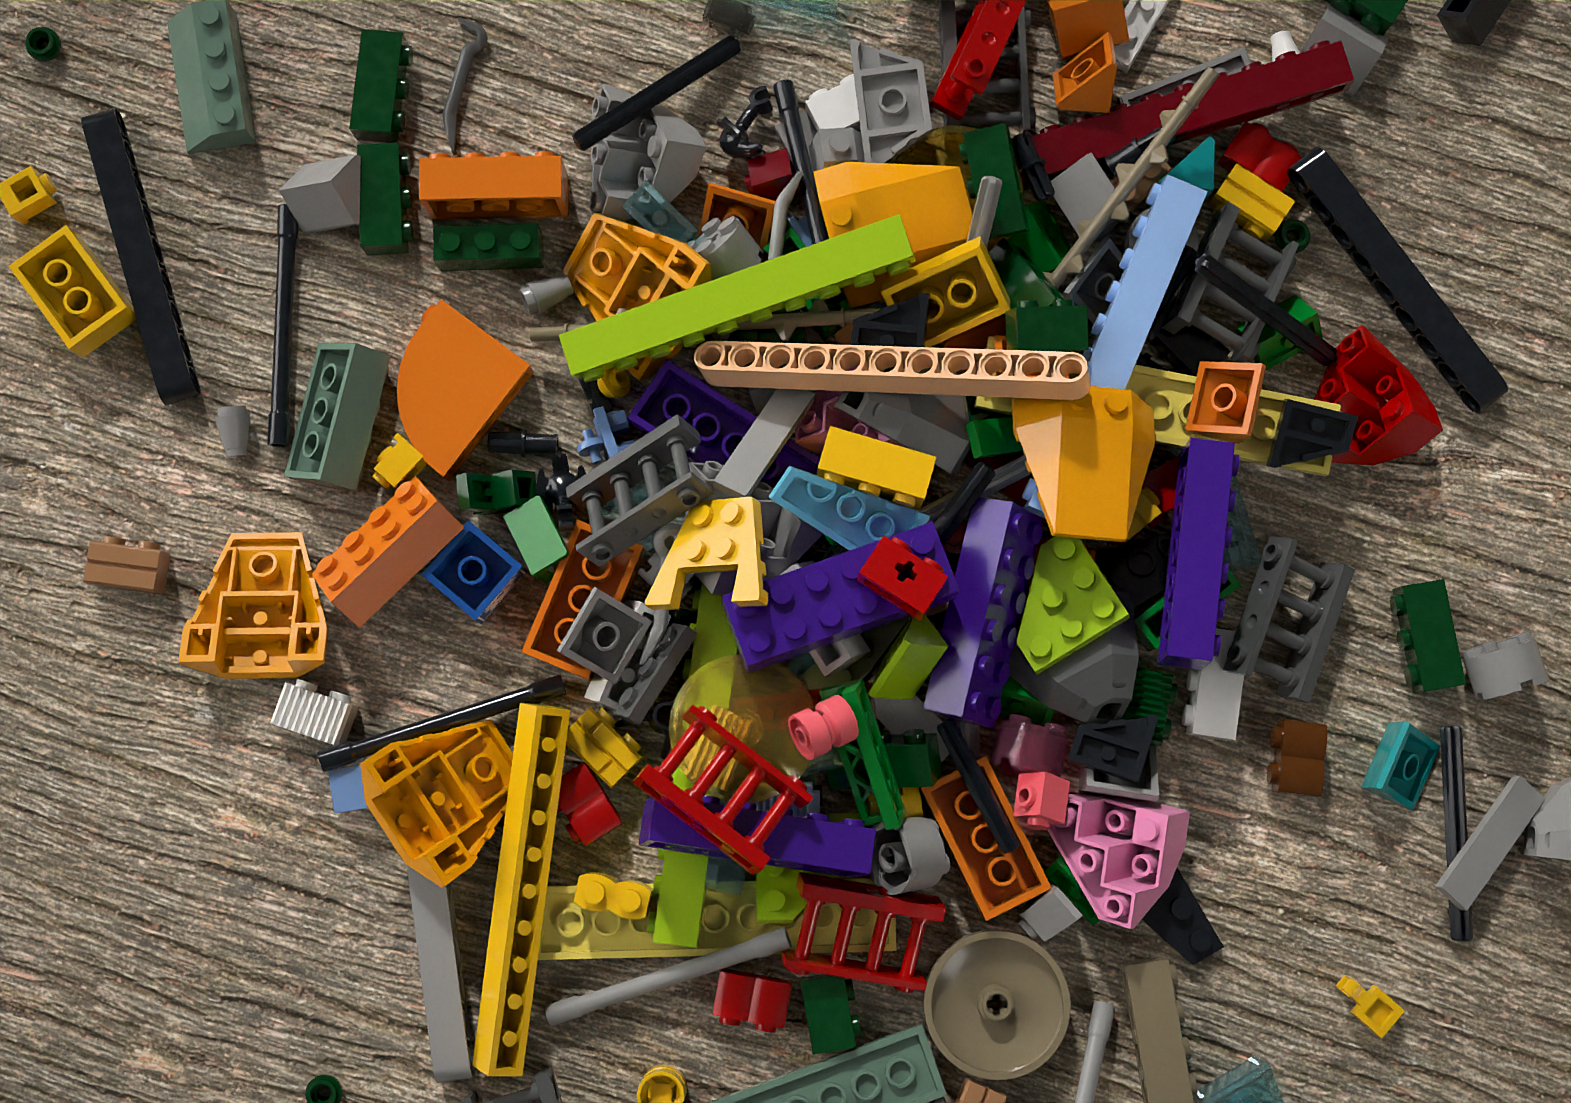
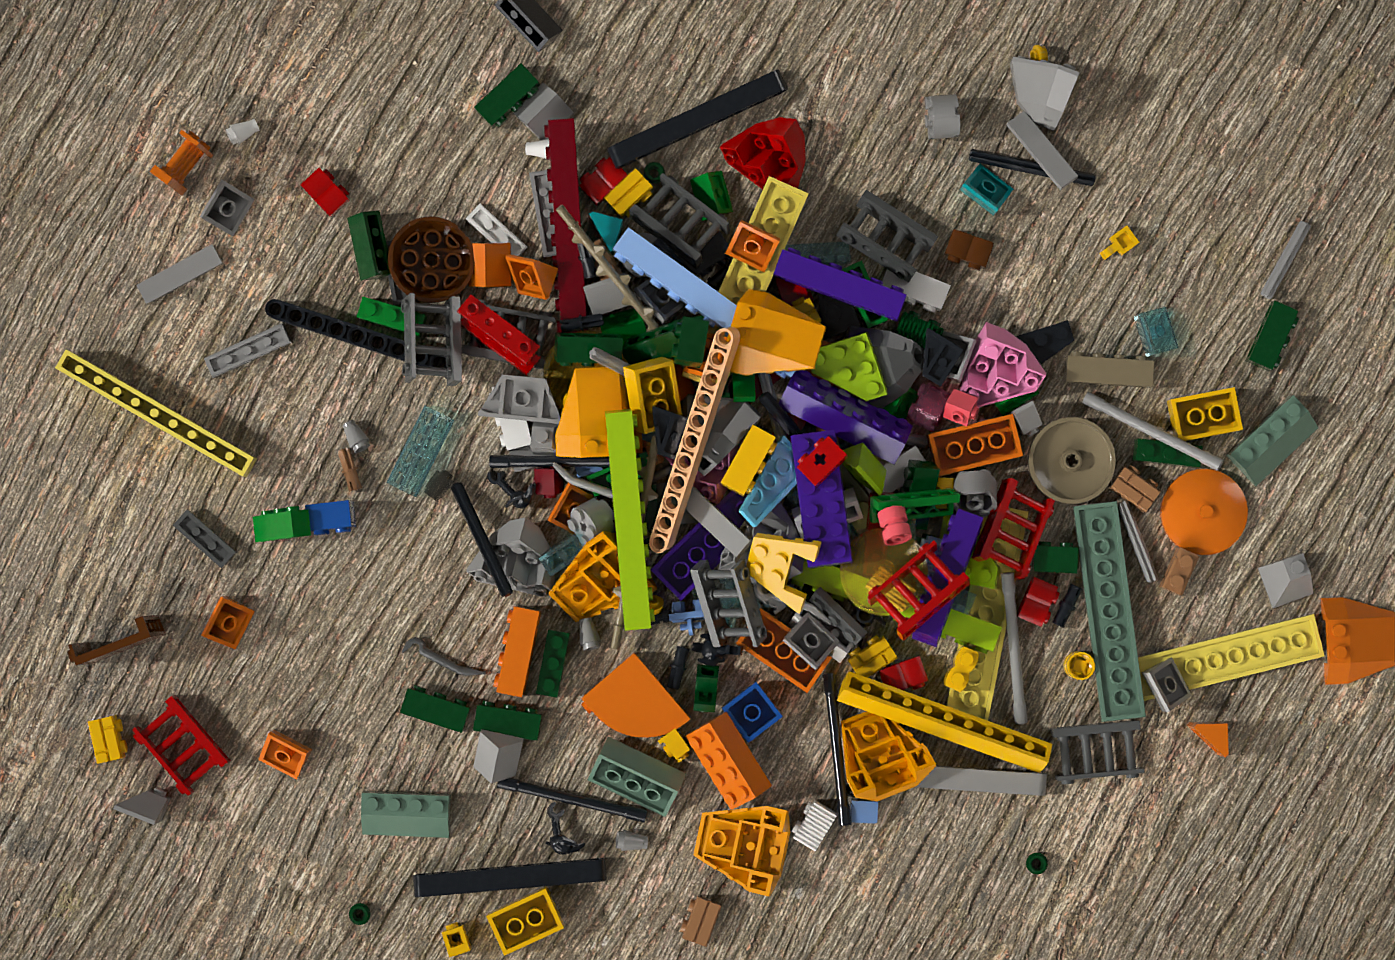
camera: 80 degrees left, 5 degrees up
(207, 317) = (559, 842): none -> black piece
(537, 538) = (740, 670): panel -> none
(756, 1050) = (1067, 605): none -> black pin
(978, 786) = (945, 442): black axle -> none
(1265, 309) = (703, 206): black axle -> none
(1309, 433) = (783, 200): black wing -> none
(1427, 636) = (914, 155): dark green brick -> none

